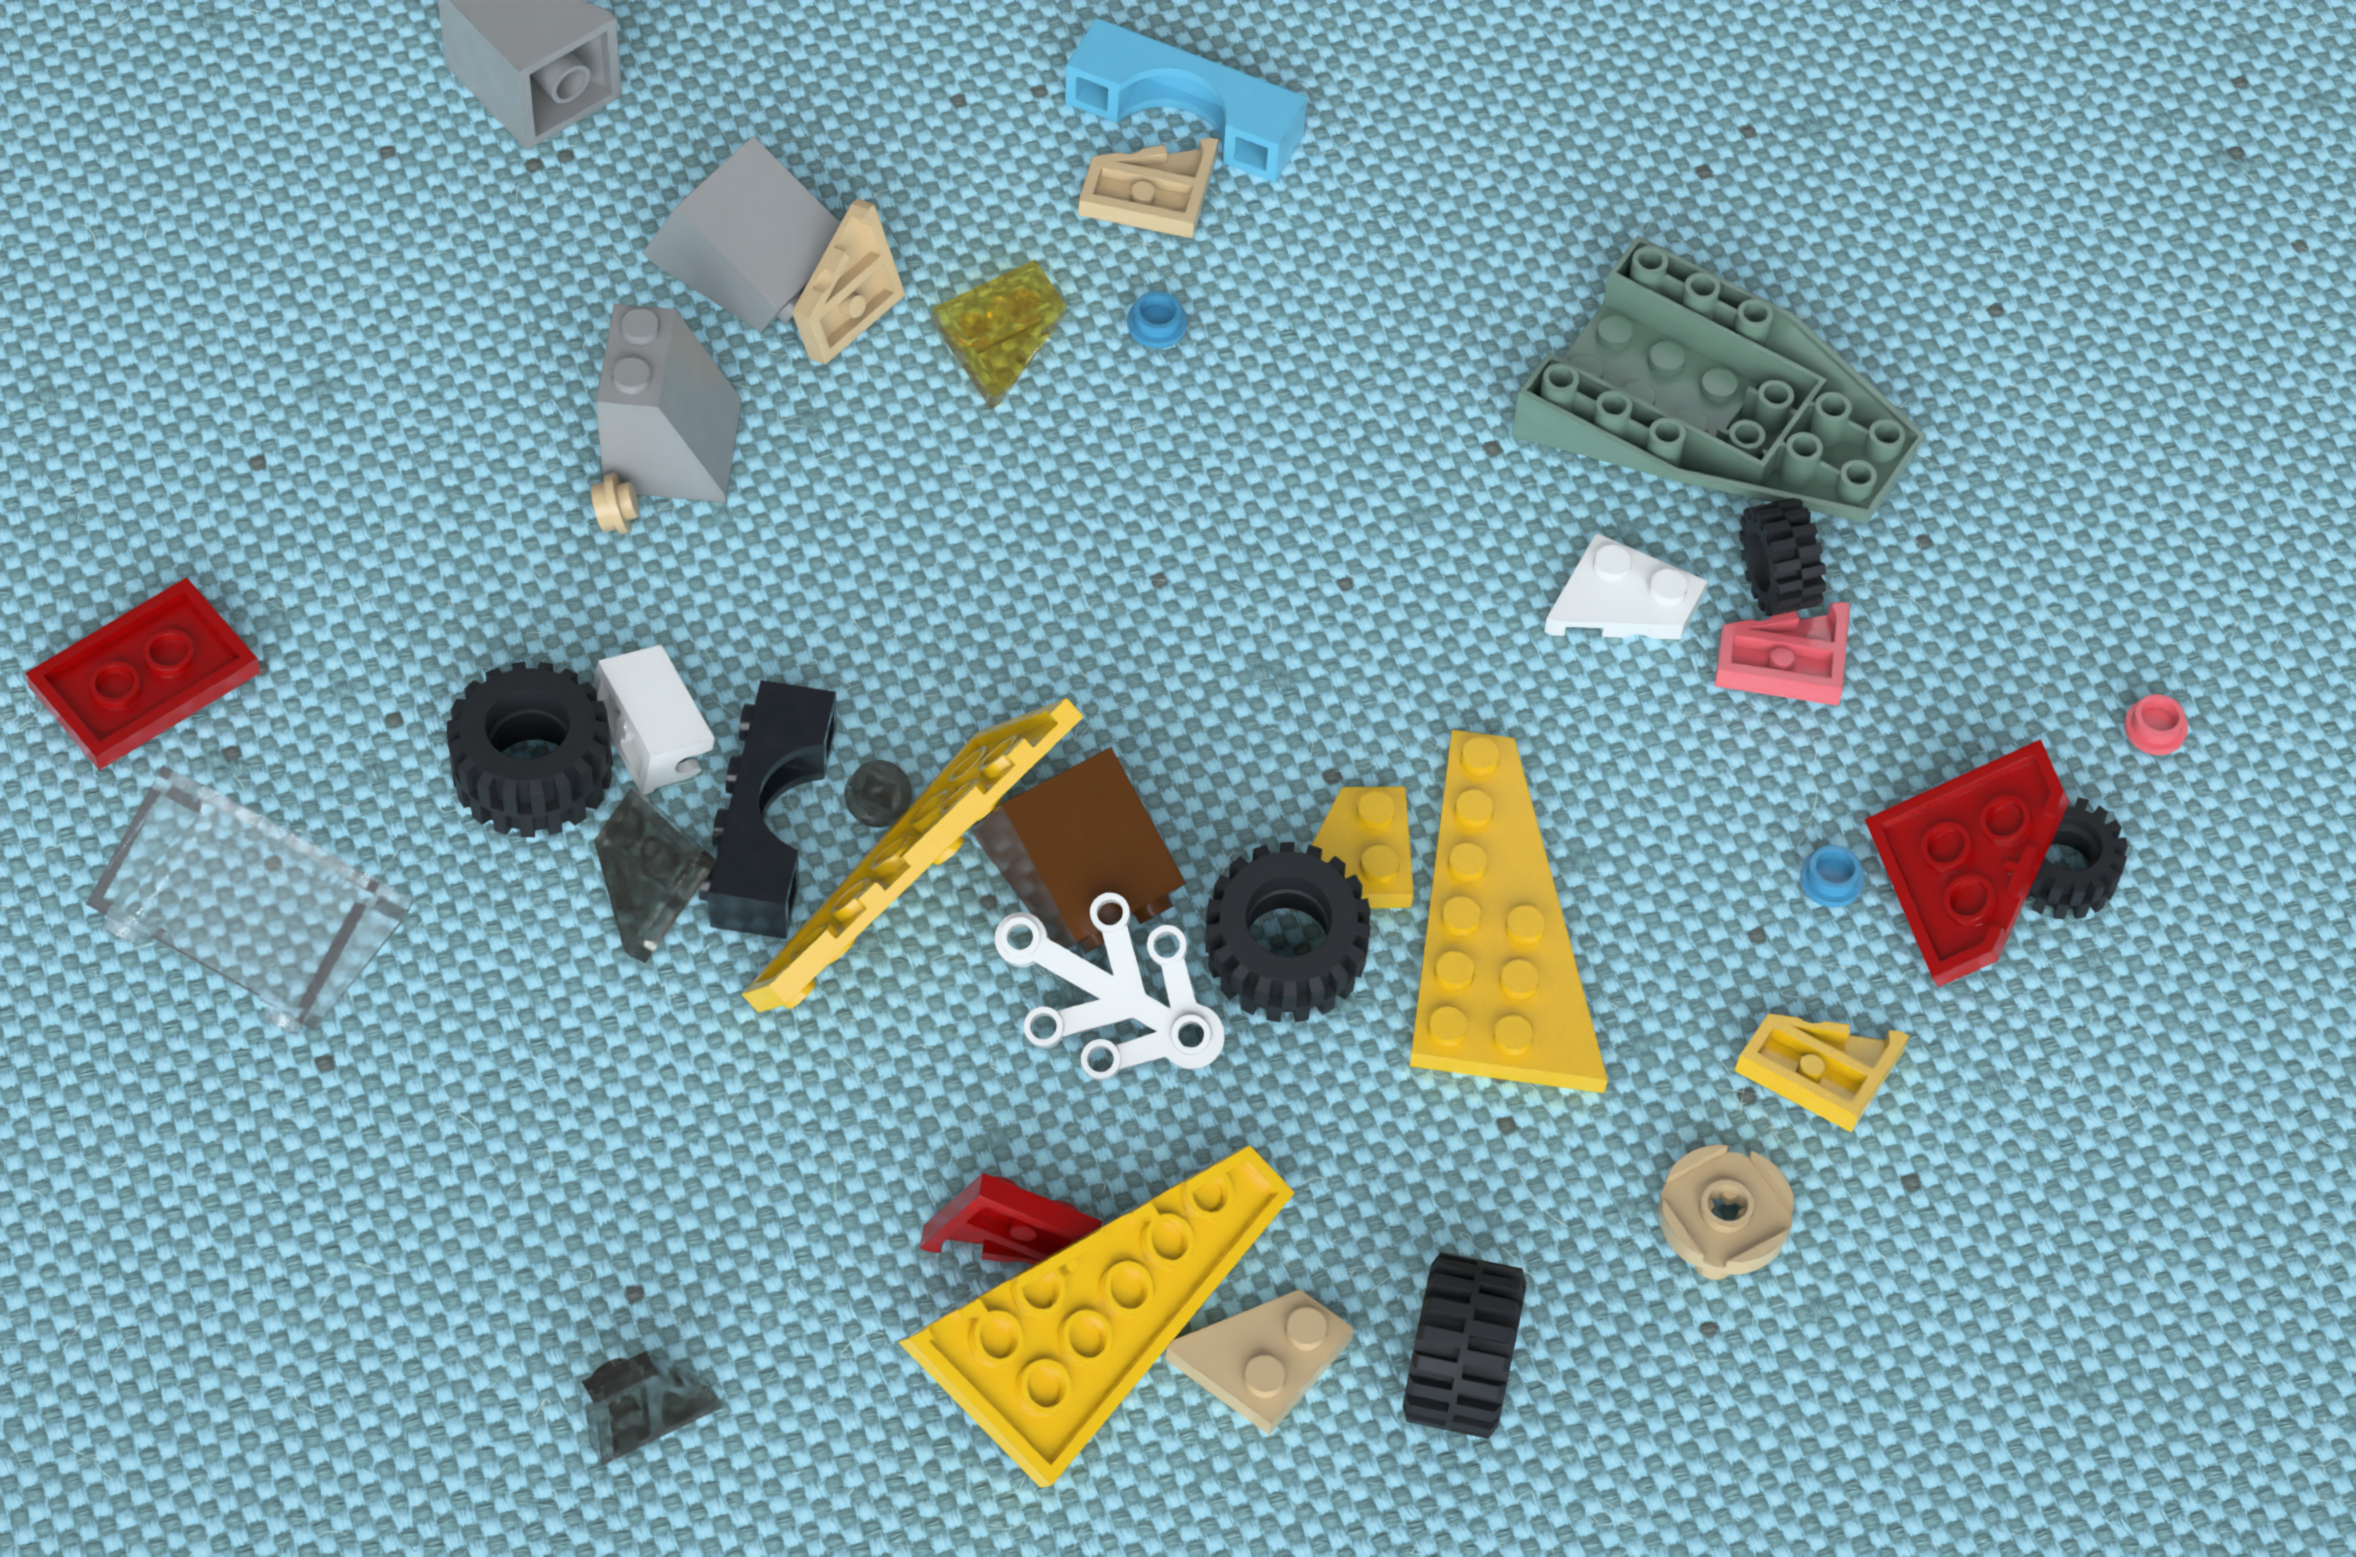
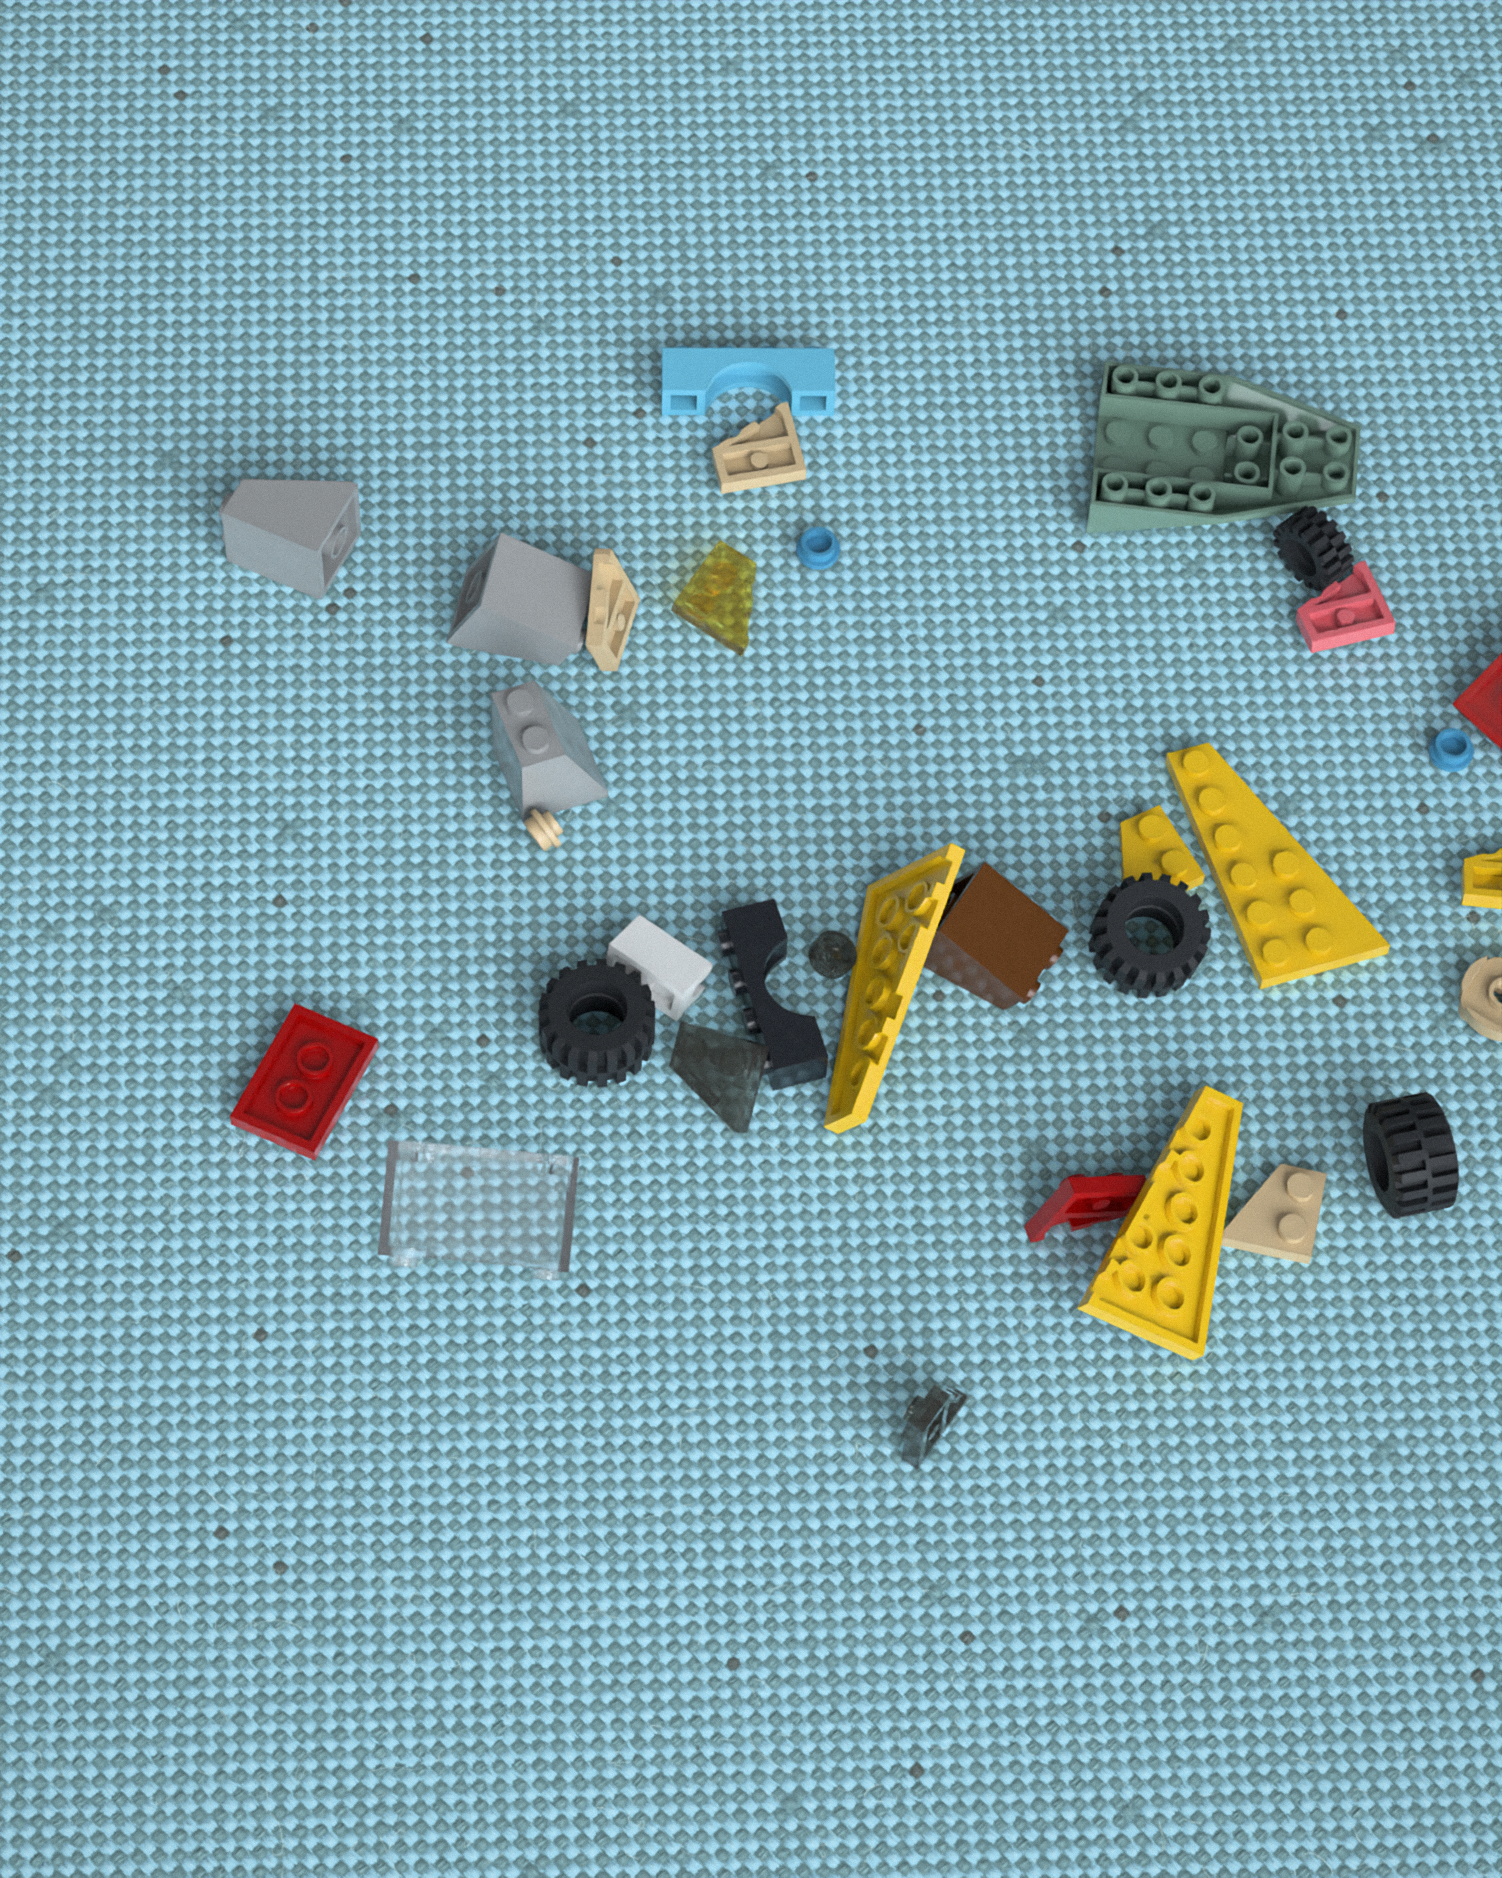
camera: 25 degrees left, 5 degrees up
(1118, 995) = (1065, 1022): white plant -> none
(1626, 594) = (1221, 613): white wing -> none

